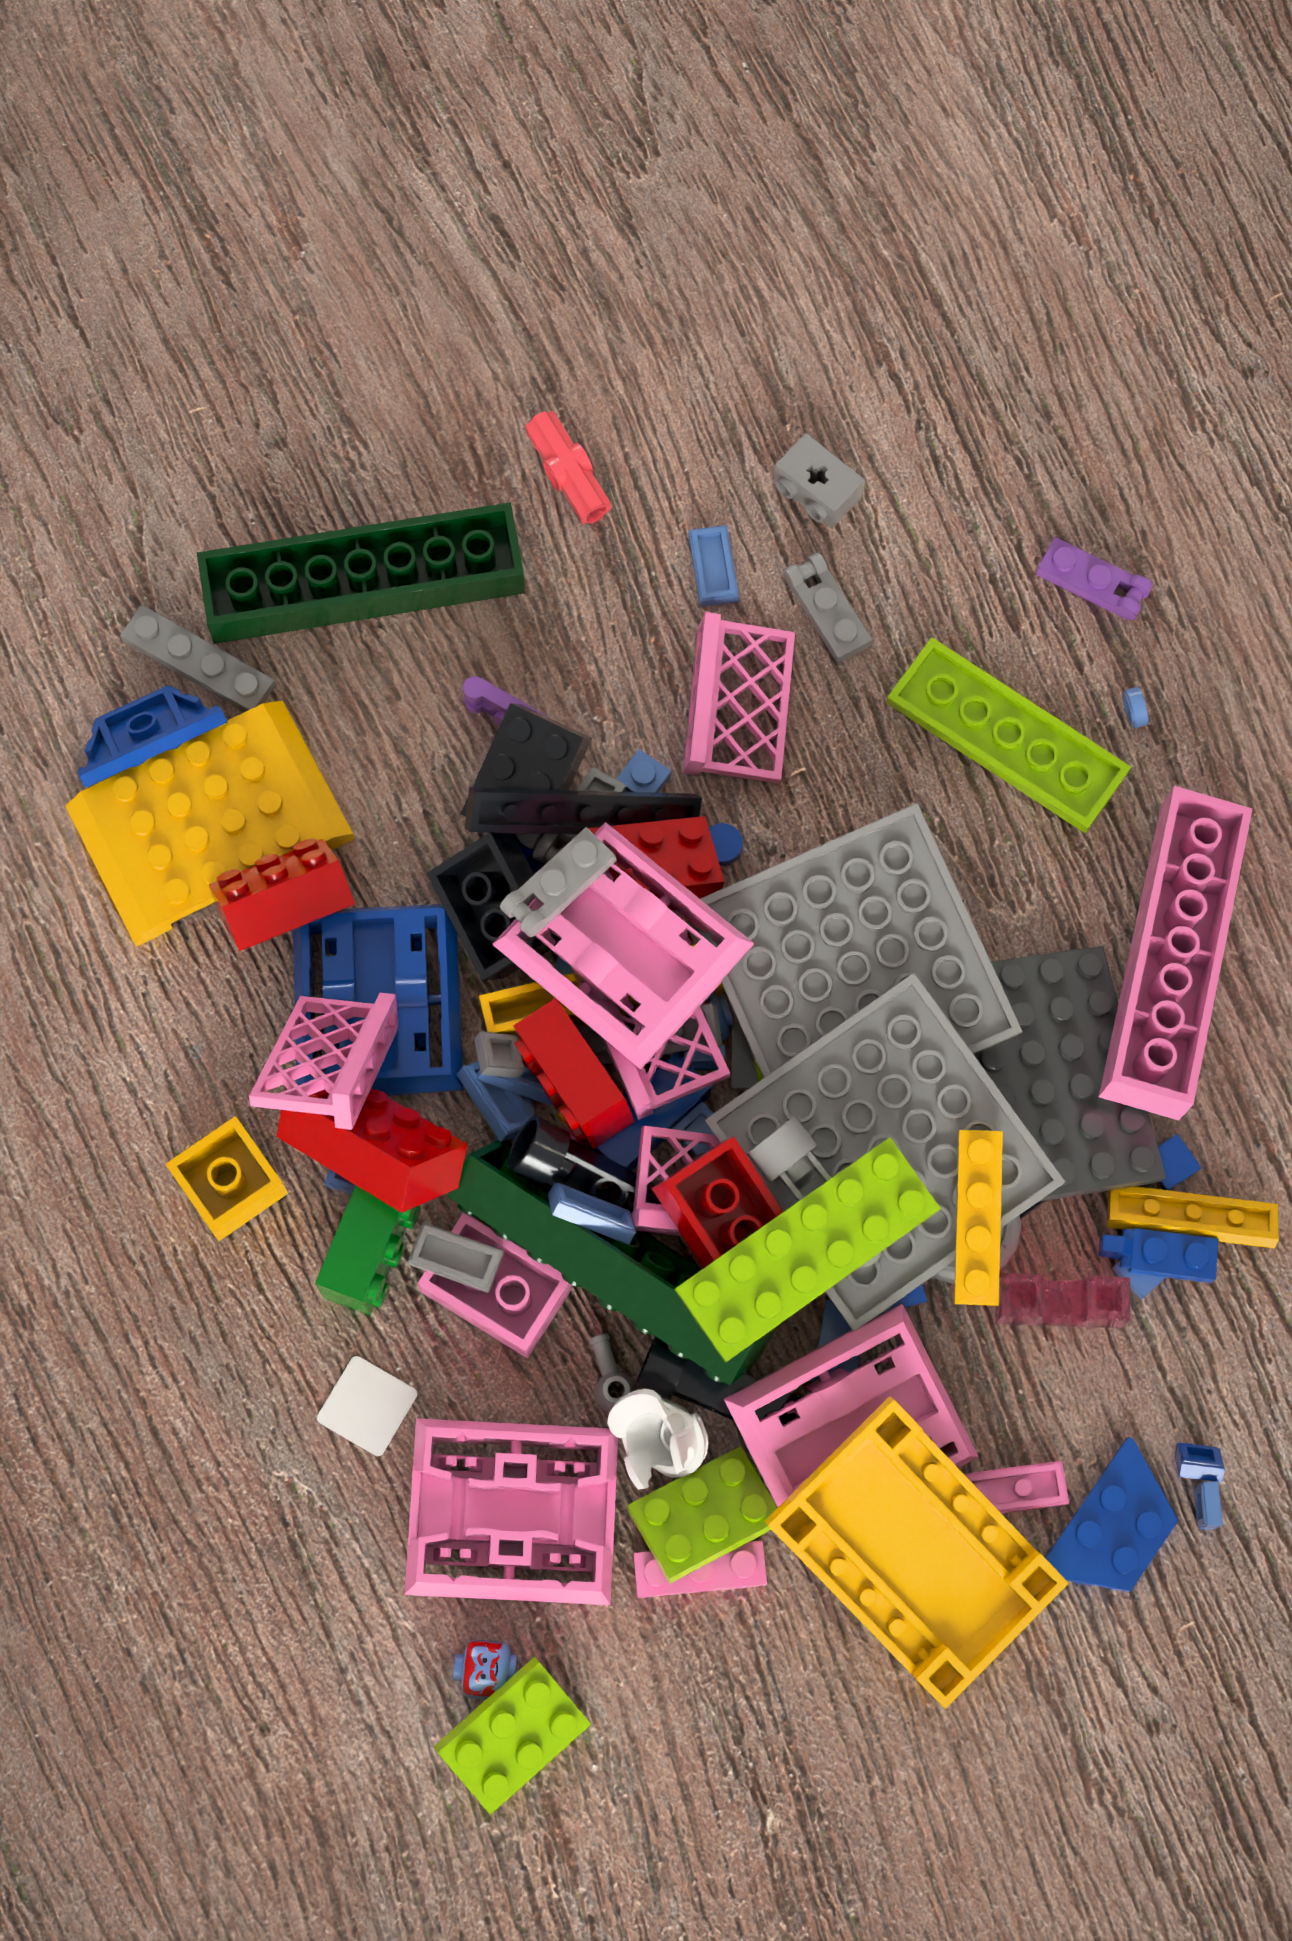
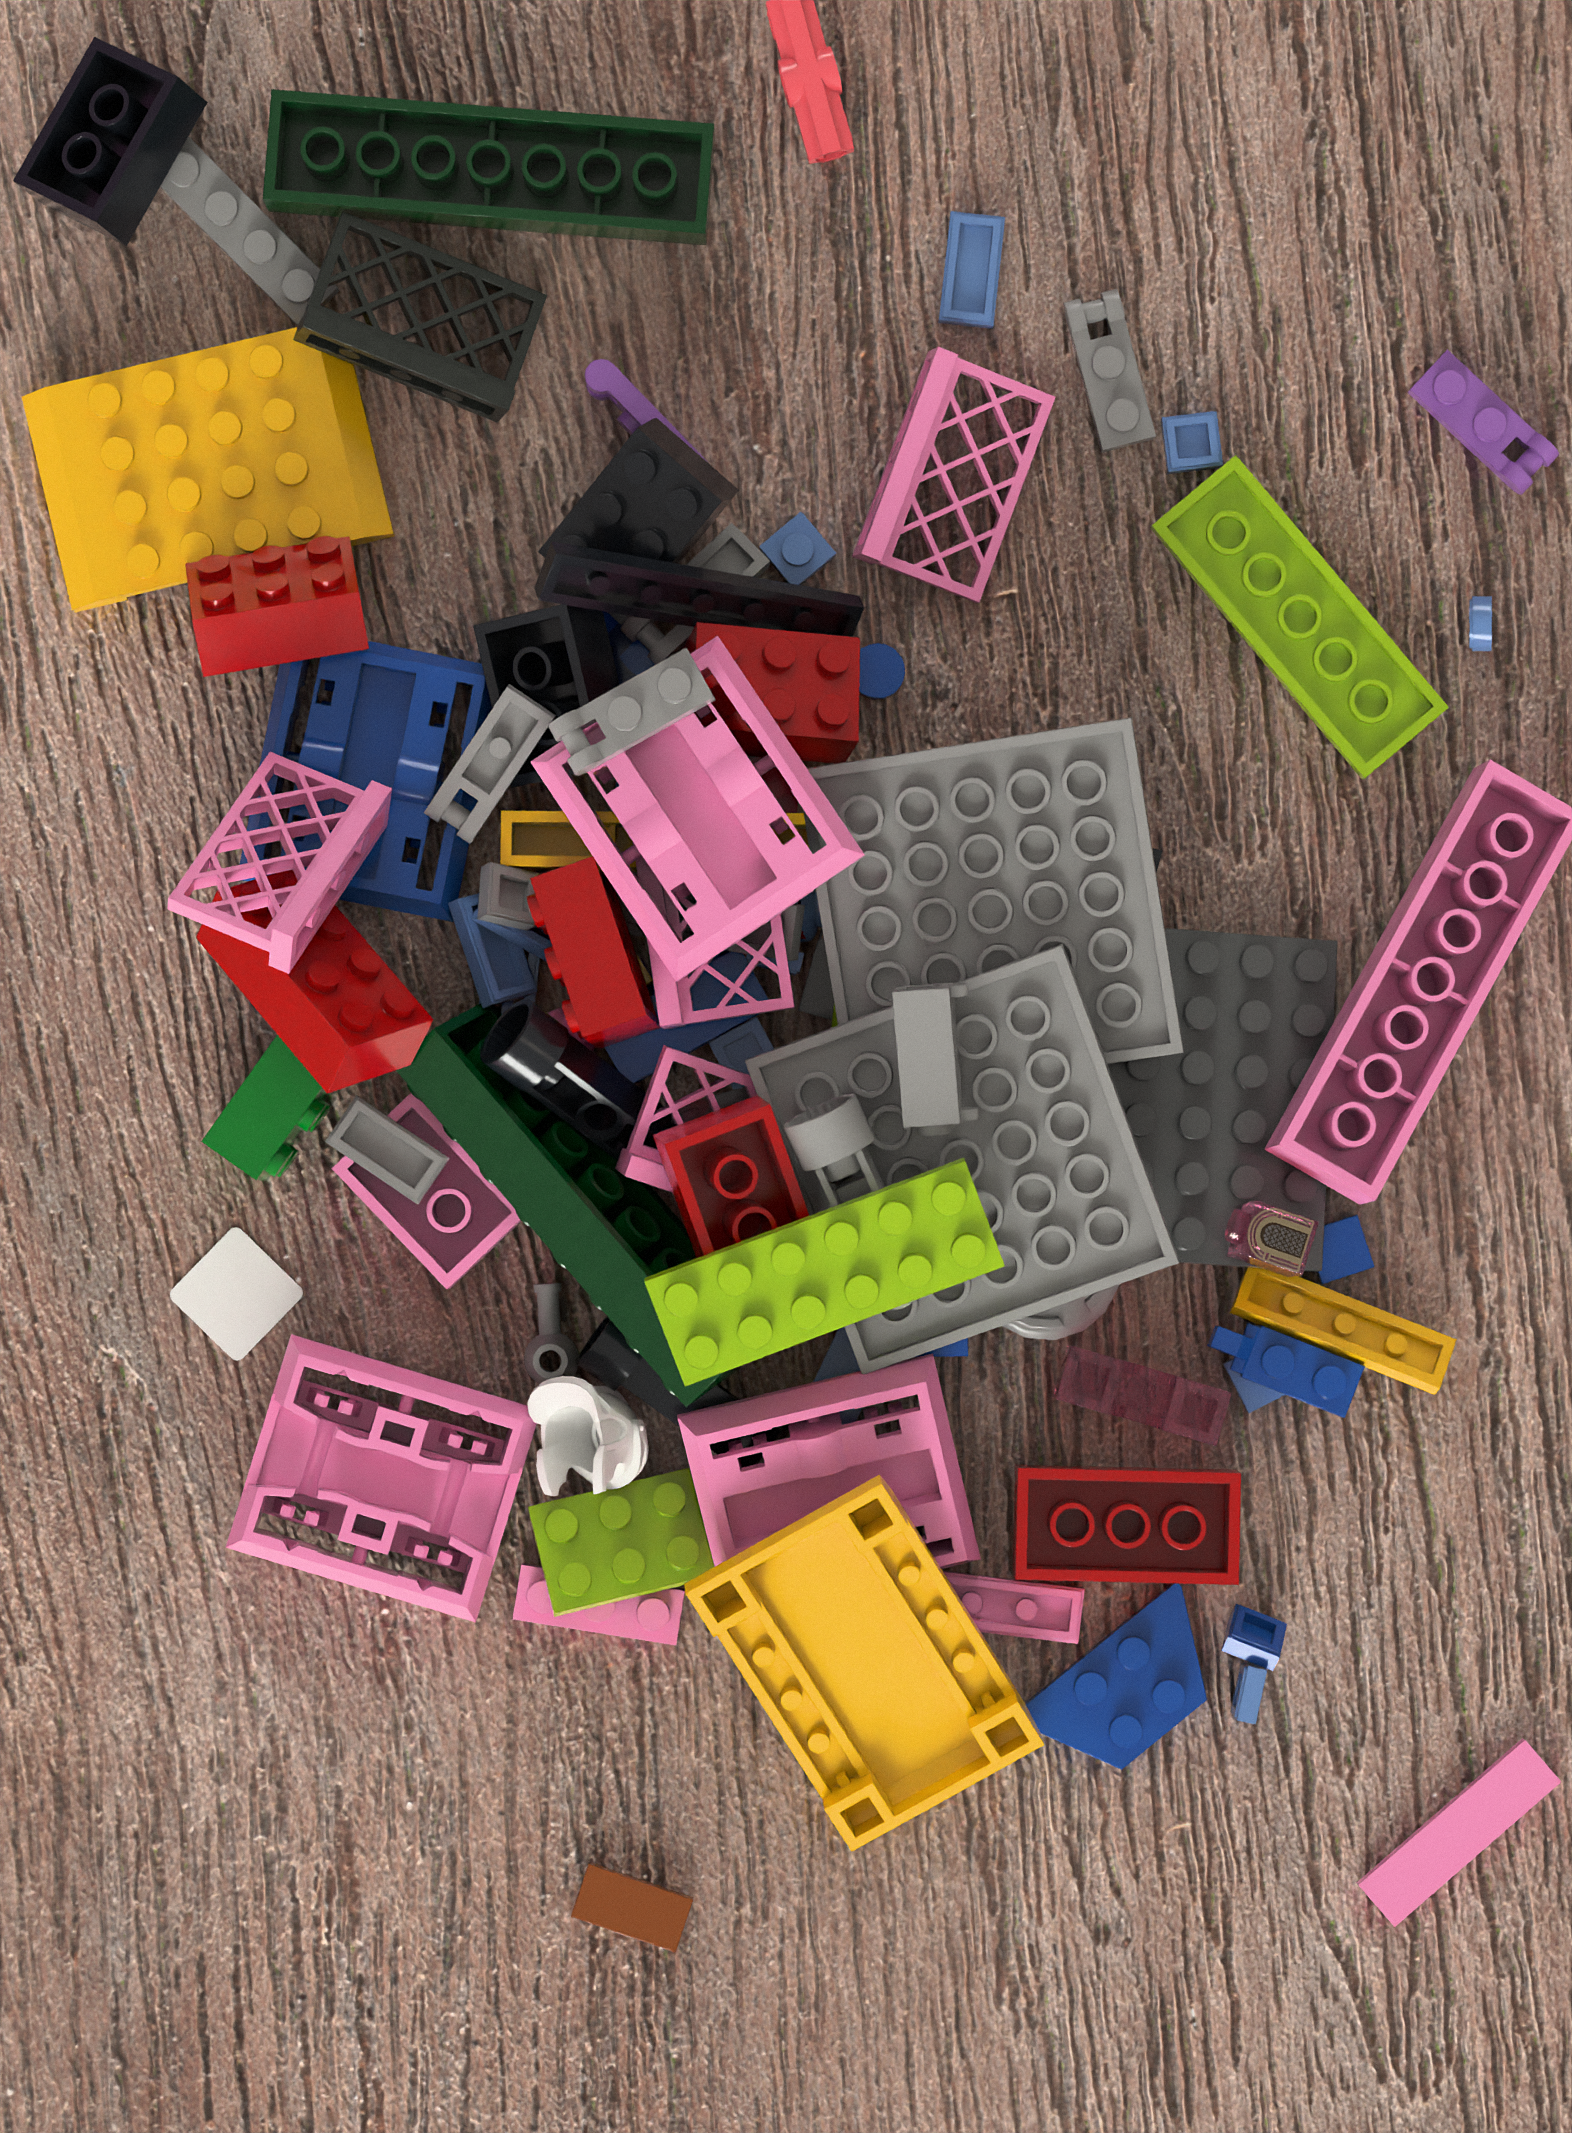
camera: 15 degrees right, 15 degrees up
(90, 616) = (110, 141): none -> black brick
(145, 730) = (148, 322): blue wing -> none
(227, 1178) = (123, 964): yellow brick -> none
(339, 712) = (403, 360): none -> pearl dark grey fence
(463, 960) = (491, 761): none -> light grey plate
(484, 1667) = (305, 1659): medium blue head -> none
(512, 1735) = (317, 1746): lime plate -> none
(591, 1213) = (570, 1142): medium blue tile -> none
(788, 1801) = (632, 1907): none -> dark orange tile
(818, 481) = (1145, 156): light grey brick -> none
(841, 1075) = (929, 1057): none -> light grey brick
(897, 640) = (1191, 442): none -> medium blue tile
(978, 1217) = (1055, 1279): yellow plate -> none
(1080, 1399) = (1126, 1524): none -> red brick
(1124, 1155) = (1270, 1238): none -> brick

